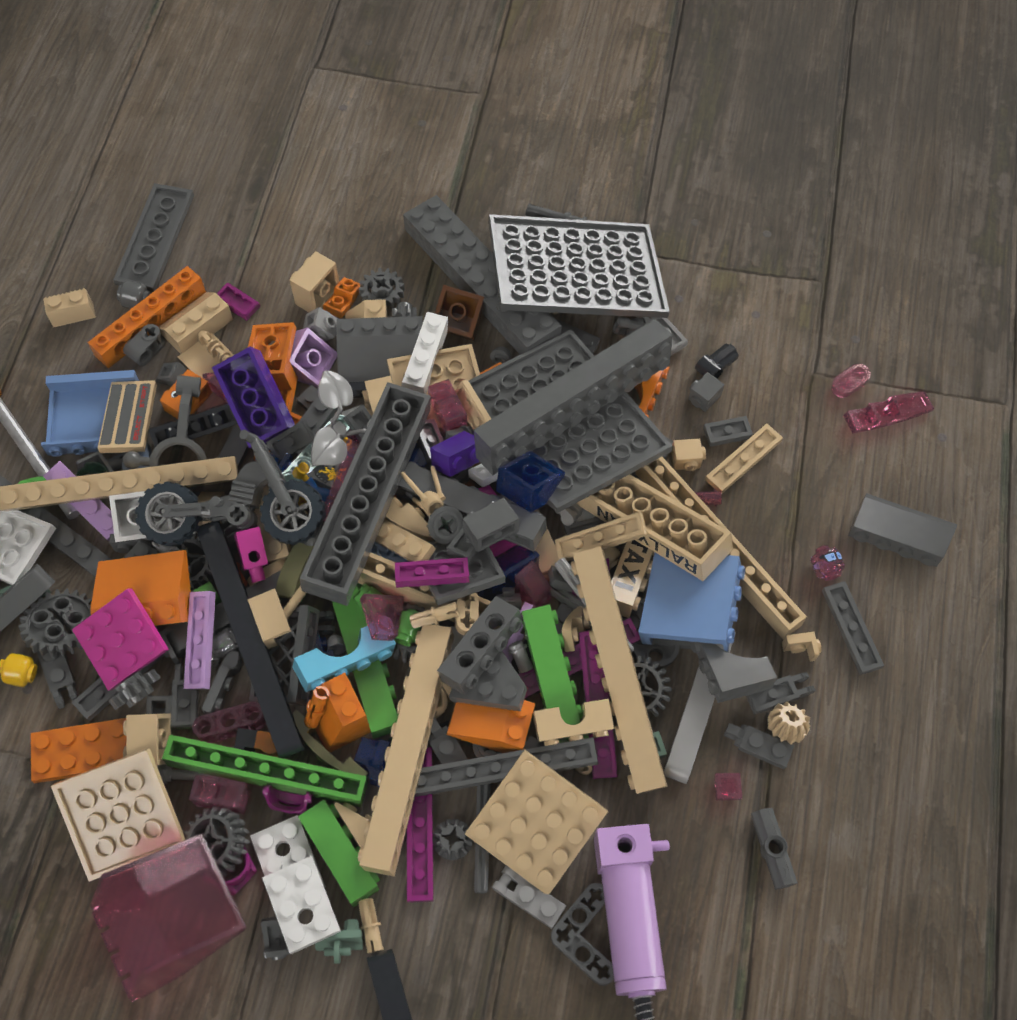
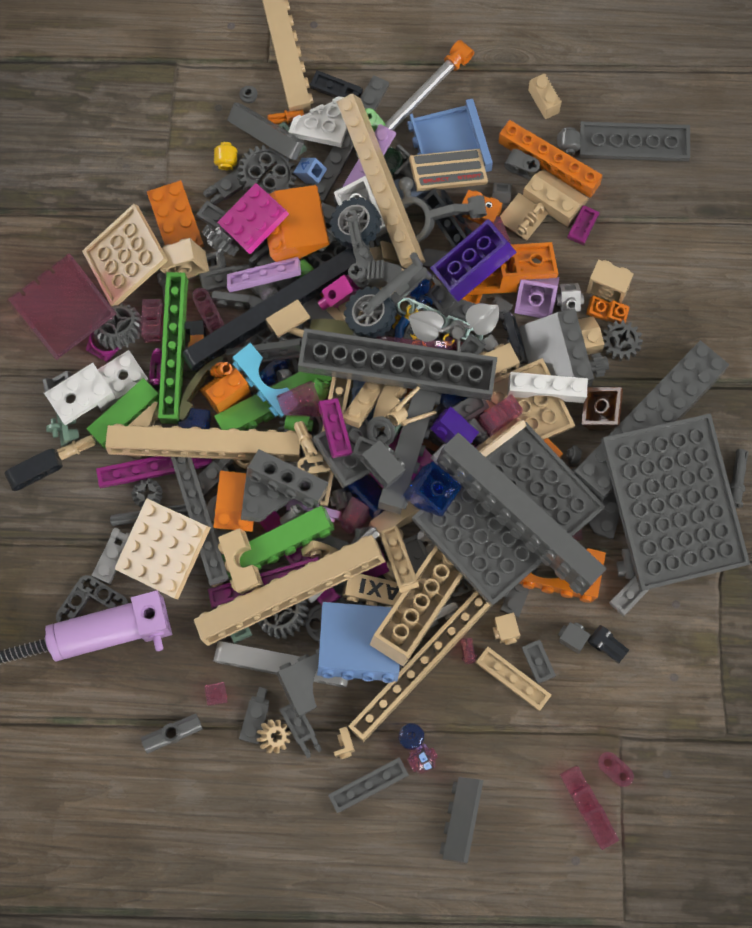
camera: 85 degrees right, 10 degrees up
(74, 569) = (310, 170): none -> medium blue brick
(801, 570) = (411, 744): none -> clear blue head

